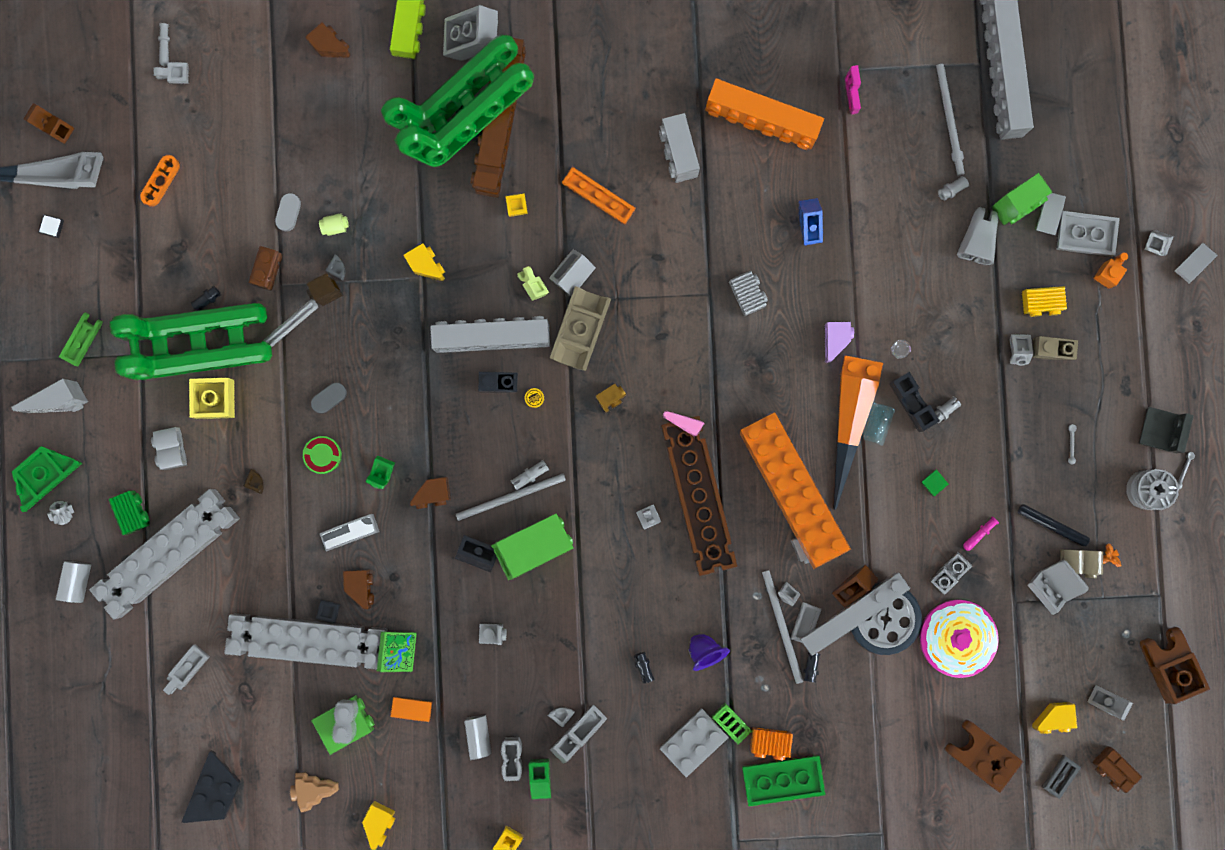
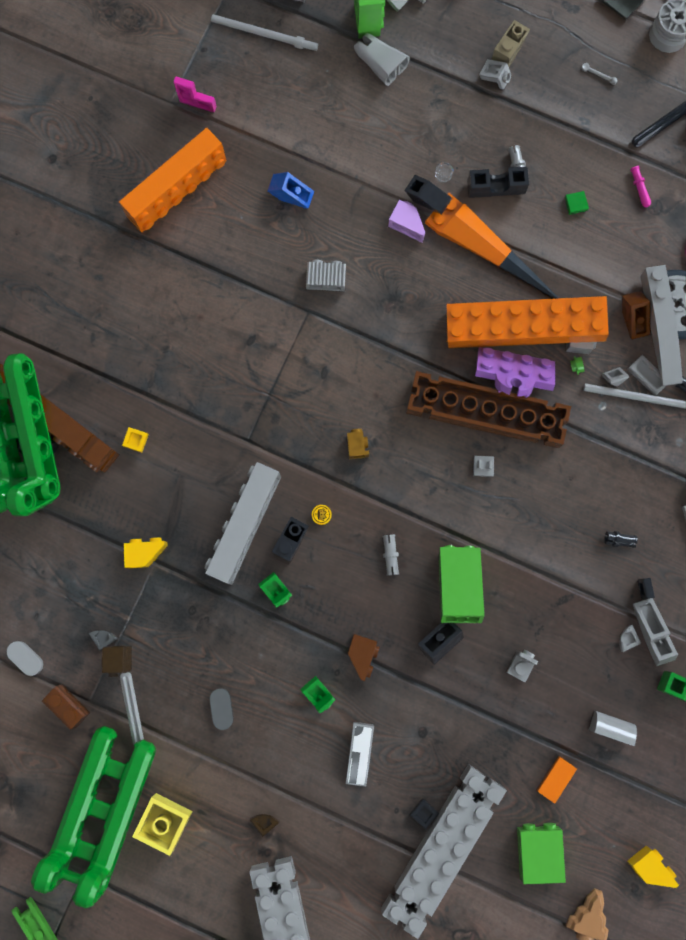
camera: 65 degrees left, 5 degrees down
(169, 448) = (189, 892): light grey brick -> none
(208, 297) = (63, 778): black pin -> none
(322, 455) = (272, 743): bright green tile -> none
(333, 224) = (60, 620): yellowish green brick -> none
(345, 716) = (542, 850): light grey brick -> none
(358, 587) = (416, 772): reddish brown slope -> none
(396, 652) = (496, 765): tile -> none
(449, 391) = (275, 590): none -> green bracket
(511, 496) = (402, 584): light grey piece -> none
(512, 764) = (648, 704): light grey brick -> none
(533, 286) = (217, 462): yellowish green plate -> none
(572, 272) = (224, 421): light grey brick -> none
(580, 329) = (280, 440): dark tan piece -> none
(598, 195) = (166, 363): orange tile -> none
(611, 709) = (646, 588): none -> black tile
(679, 148) = (163, 268): light grey brick -> none
(687, 424) = (419, 384): bright pink slope -> none
(705, 651) = (632, 475): dark purple piece -> none
(746, 502) = (515, 370): none -> medium lavender plate
(781, 555) = (577, 365): none -> bright green plate
(868, 345) = (427, 194): none -> black slope
(878, 423) = (500, 224): clear light blue slope -> none
(950, 190) = (326, 62): light grey pin -> none
(951, 573) = (662, 228): light grey slope -> none
(1044, 300) = (463, 33): yellow brick -> none

